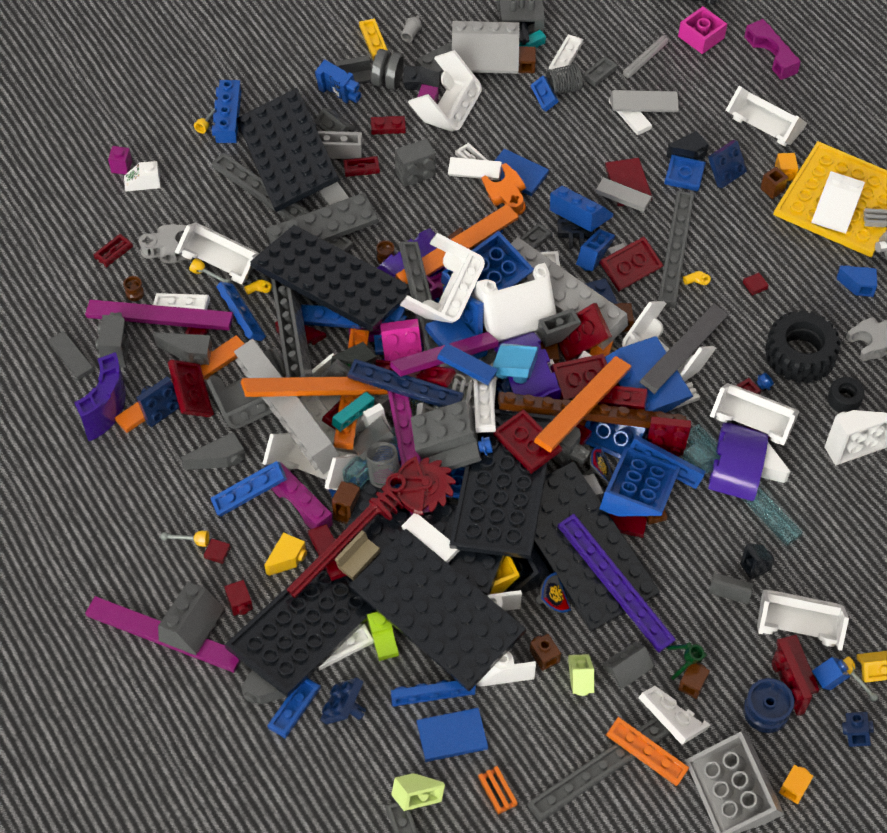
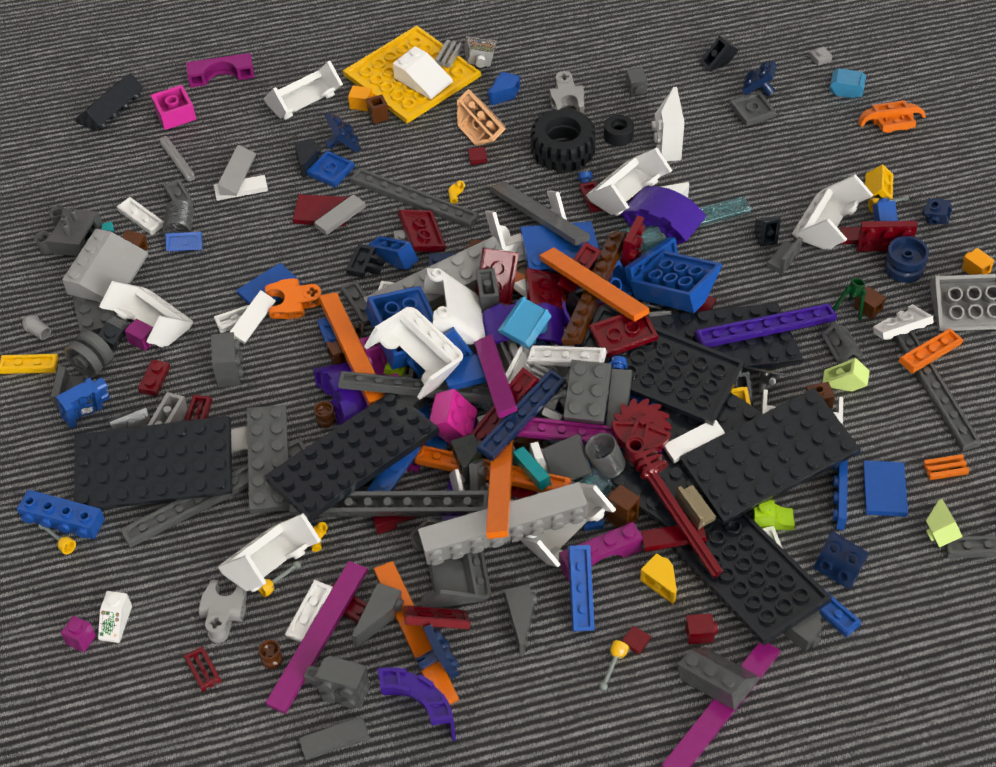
camera: 70 degrees left, 5 degrees down
(241, 311) = (336, 559): blue plate -> none
(467, 364) = (519, 356): blue tile -> none
(578, 209) = (345, 248): blue slope -> none
(802, 269) = (477, 119): none -> light nougat wedge

